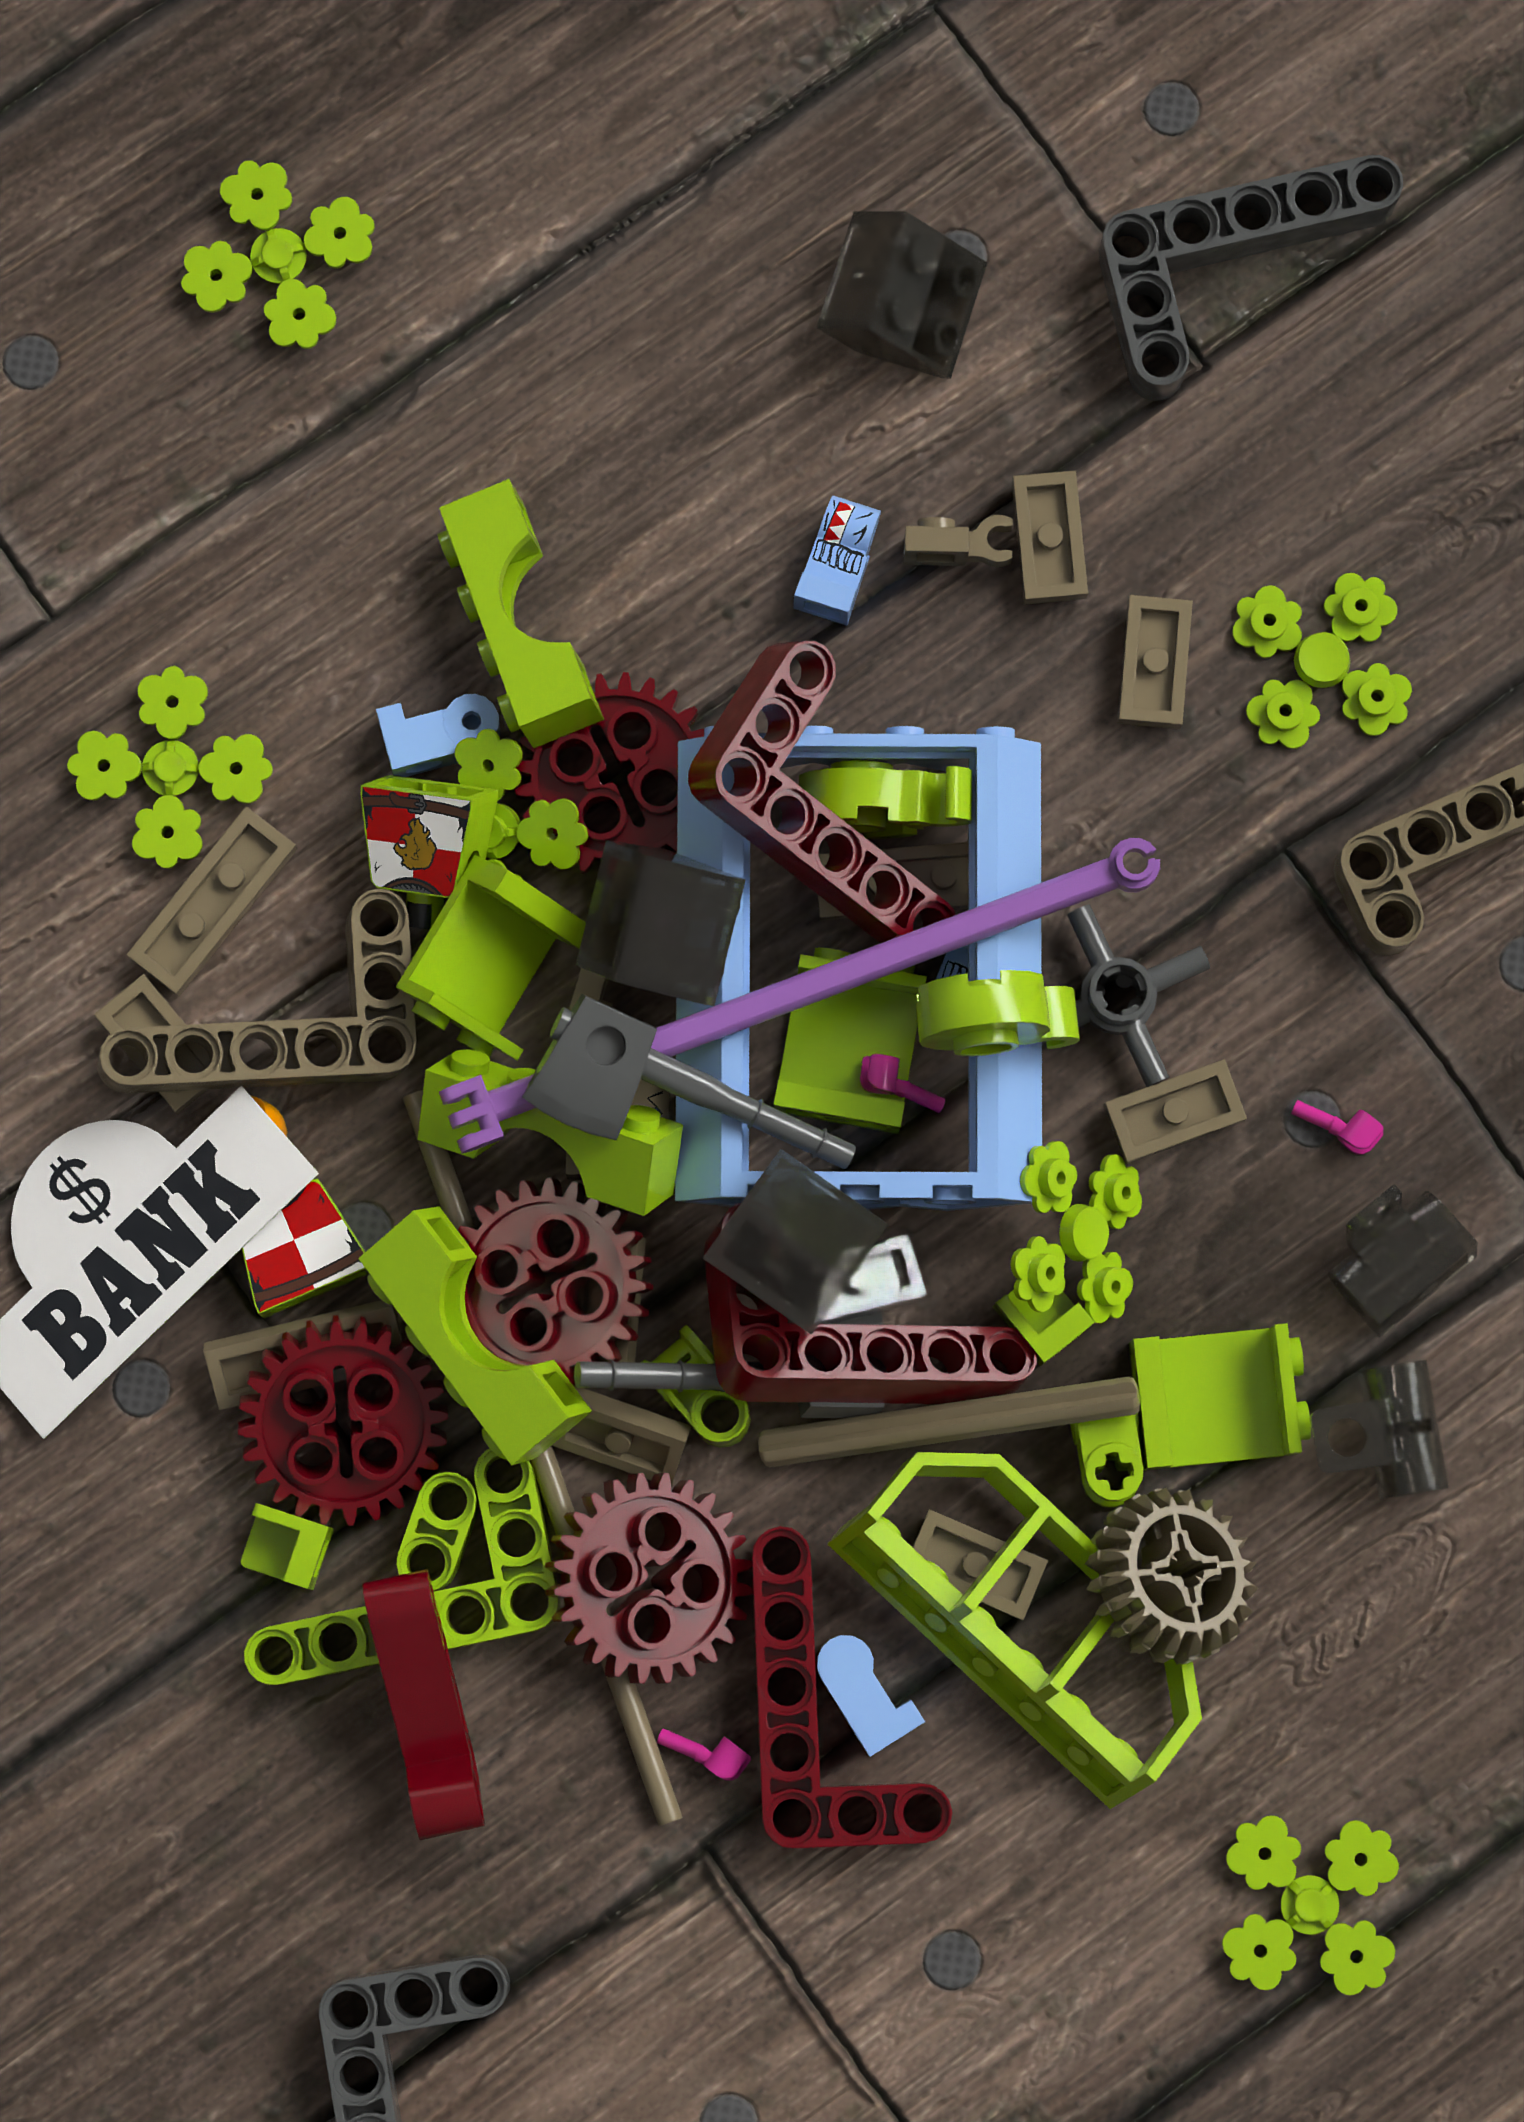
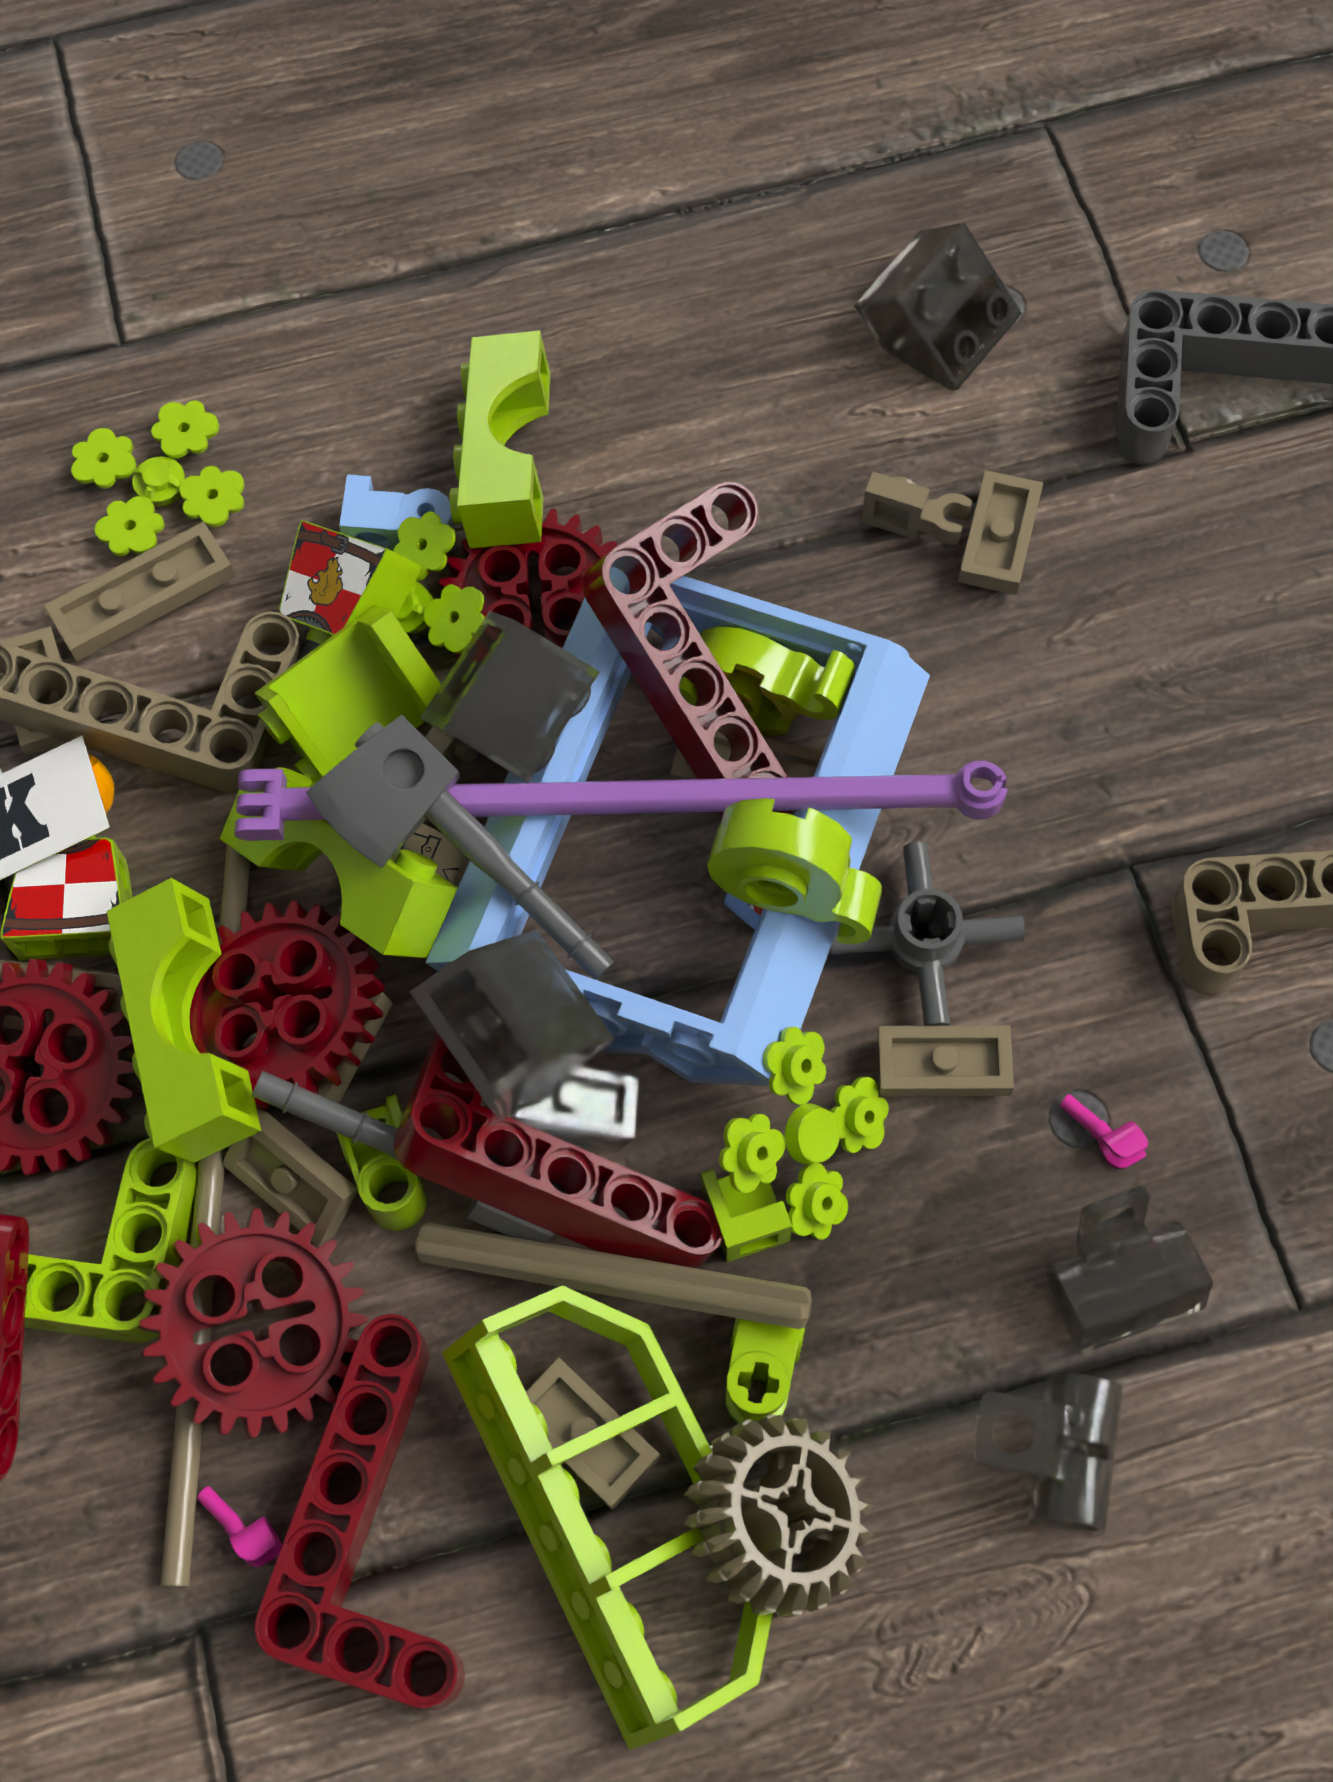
camera: 25 degrees right, 15 degrees down
(278, 254) = (429, 138): lime plant -> none
(428, 1529) = (66, 1197): lime beam -> none
(832, 1037) = (654, 899): lime panel -> none
(837, 561) = (803, 493): light blue leg -> none
(848, 1675) = (412, 1501): light blue leg -> none
(880, 1077) = (672, 935): dark pink hand -> none
(1155, 662) = (1061, 662): dark tan plate -> none
(1219, 1397) = (893, 1355): lime panel -> none
(1321, 660) = (1219, 713): lime plant -> none

